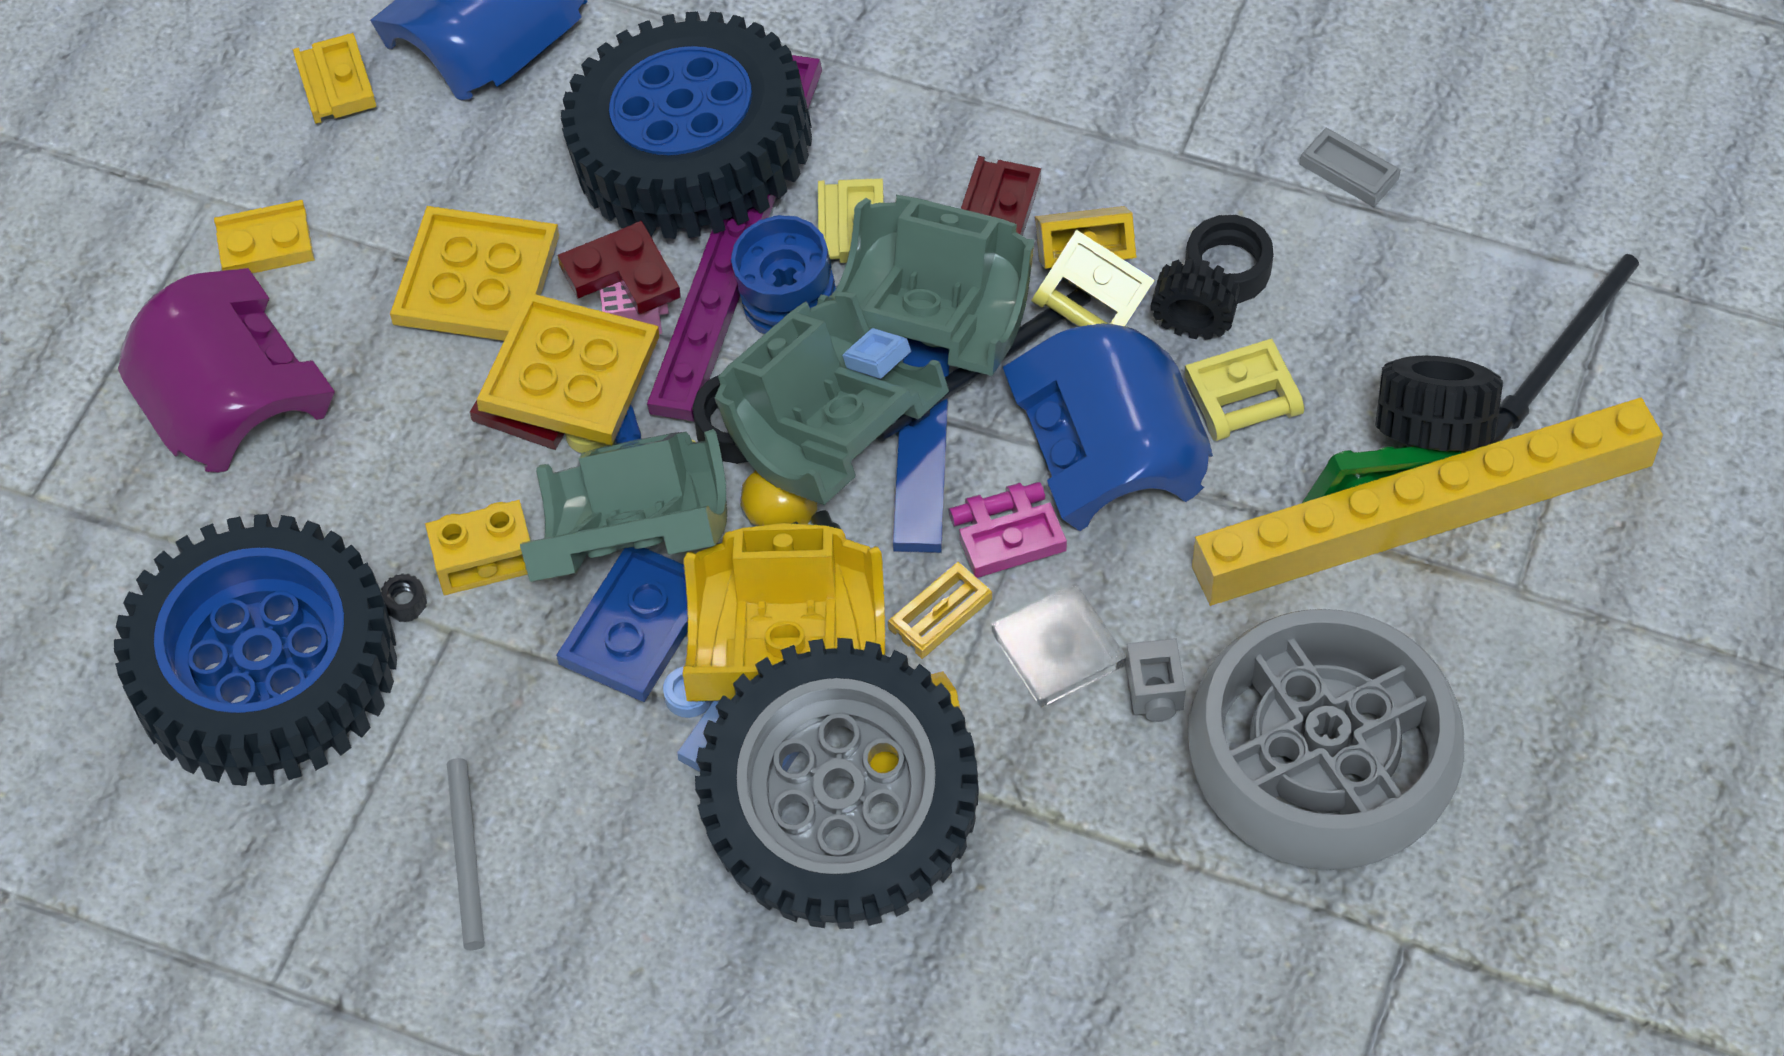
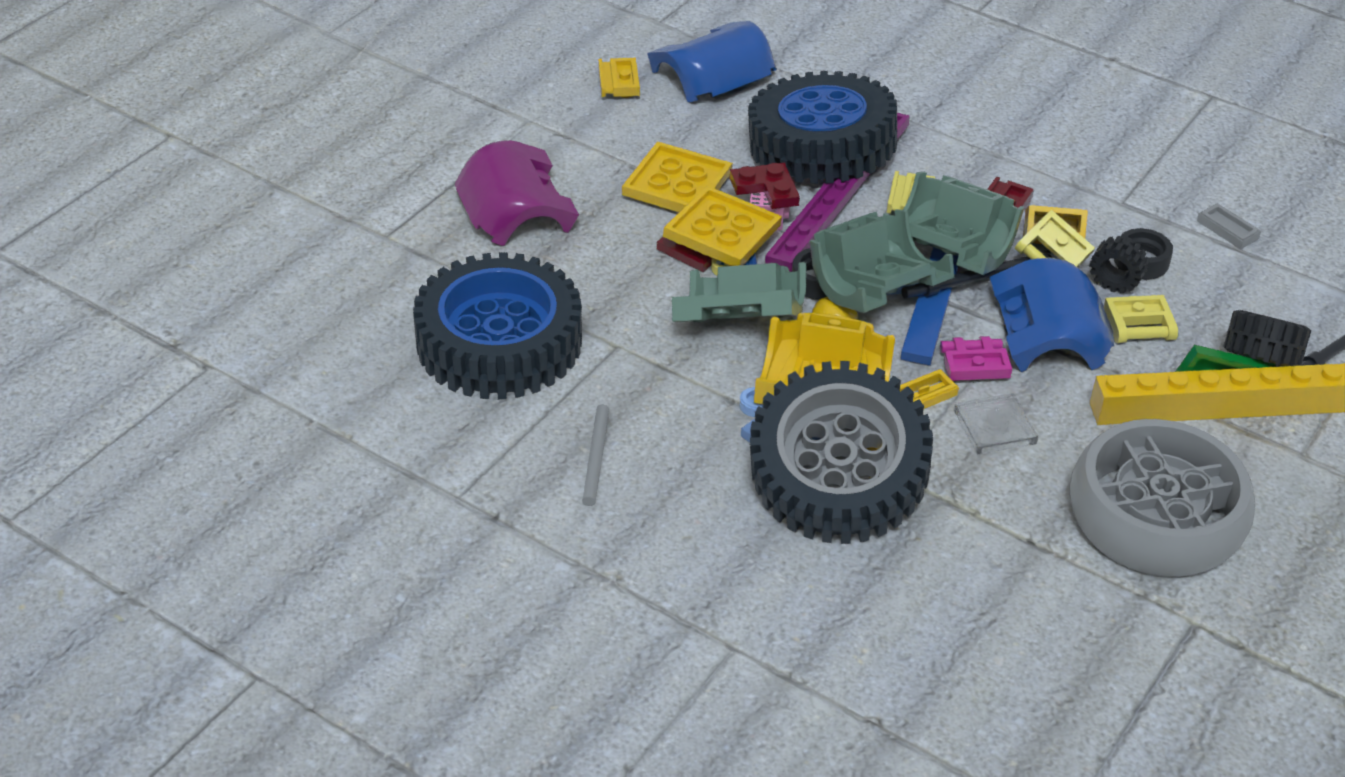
camera: 10 degrees right, 15 degrees down
(264, 238) = (559, 141): yellow plate -> none
(400, 584) = (593, 322): black axle -> none
(478, 546) = (645, 305): yellow brick -> none
(630, 624) = (727, 360): blue plate -> none
(779, 268) = (863, 194): blue wheel -> none
(876, 353) = (913, 246): light blue tile -> none
(1155, 678) = (1055, 456): light grey brick -> none

